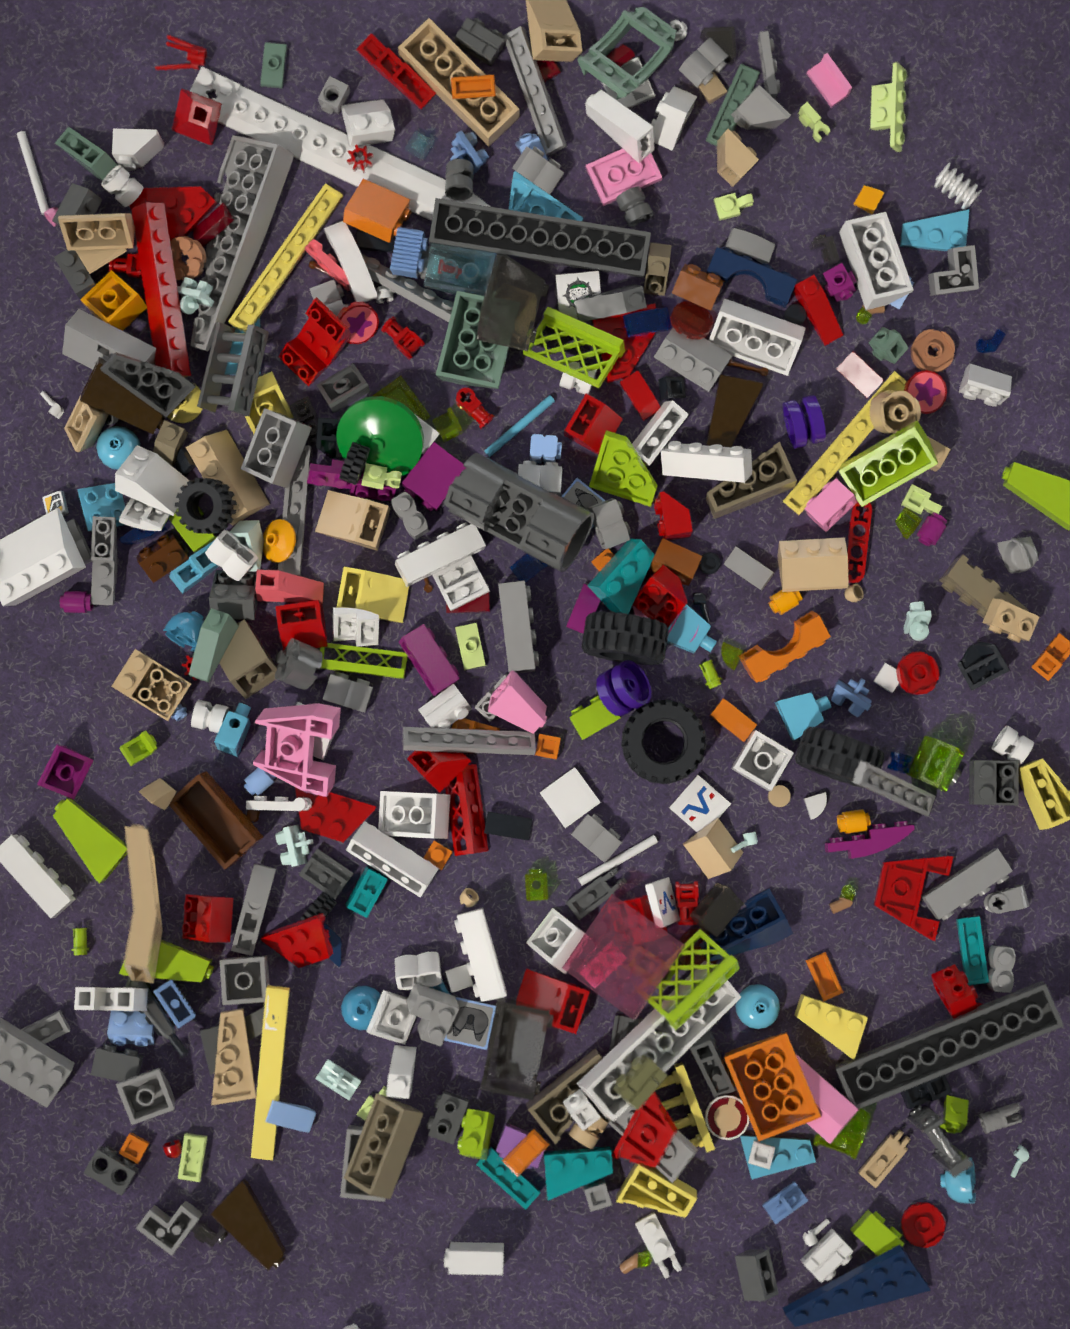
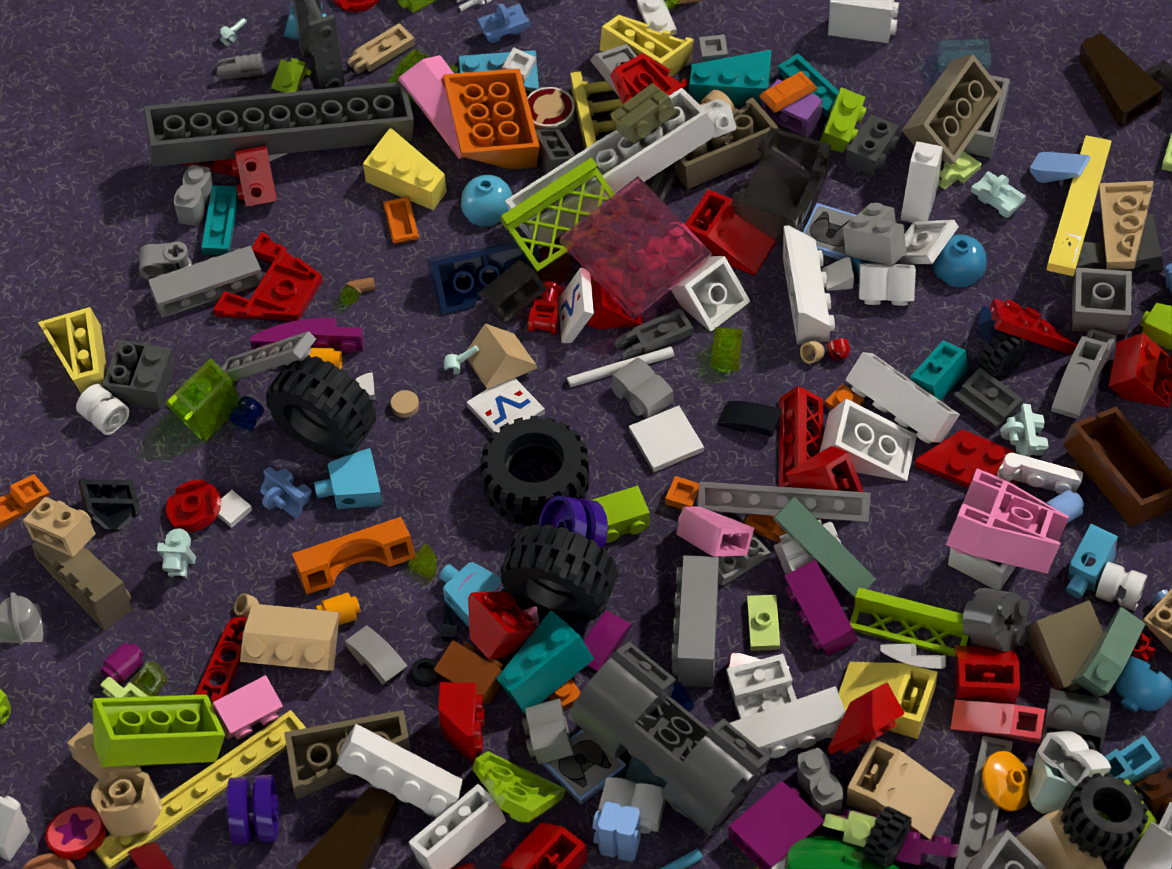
camera: 165 degrees left, 30 degrees down
(347, 692) = (934, 586): light grey brick -> none
(380, 556) = (866, 719): none -> red slope
(383, 1229) = (956, 49): none -> clear light blue hinge
(433, 703) = (823, 548): none -> sand green tile
(448, 903) = (838, 349): none -> red hinge
(710, 674) = (455, 537): lime pin -> none
(733, 720) = (442, 492): orange slope -> none
(762, 760) = (416, 434): white brick -> none

